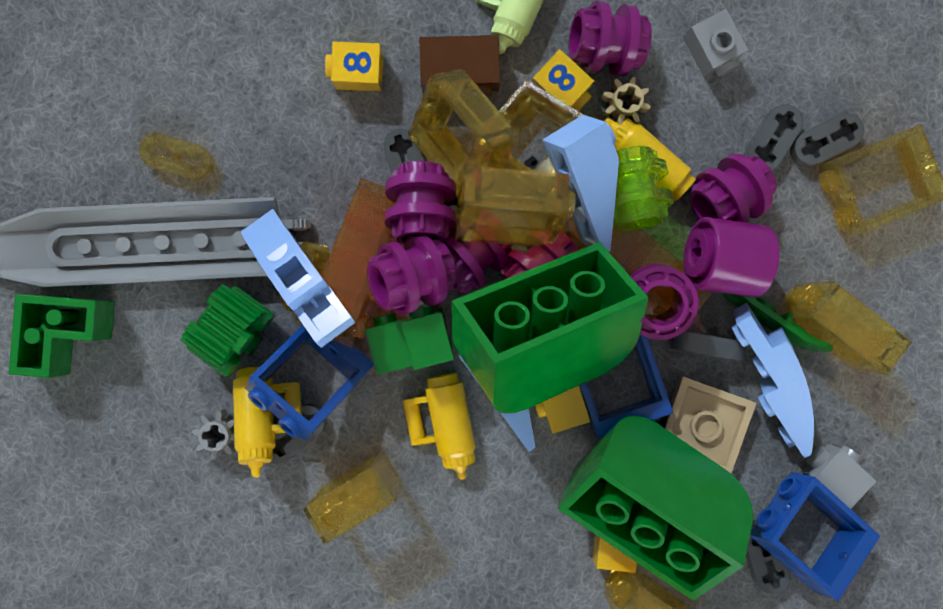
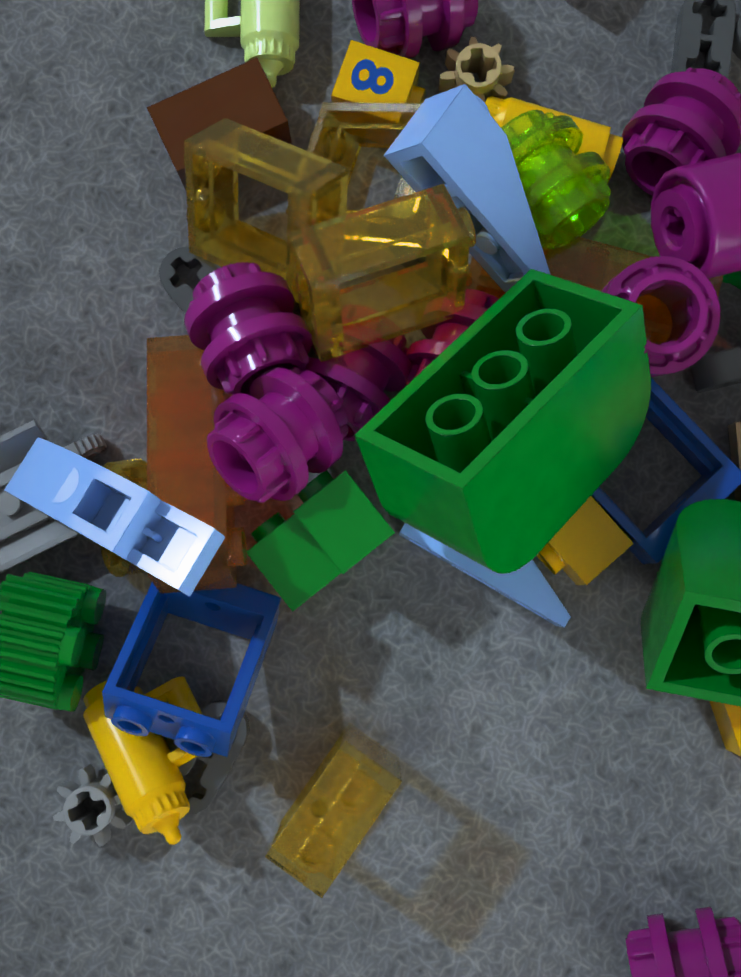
camera: 25 degrees left, 5 degrees down
(355, 66) = (74, 189): yellow brick -> none
(449, 422) = (426, 635): yellow piece -> none

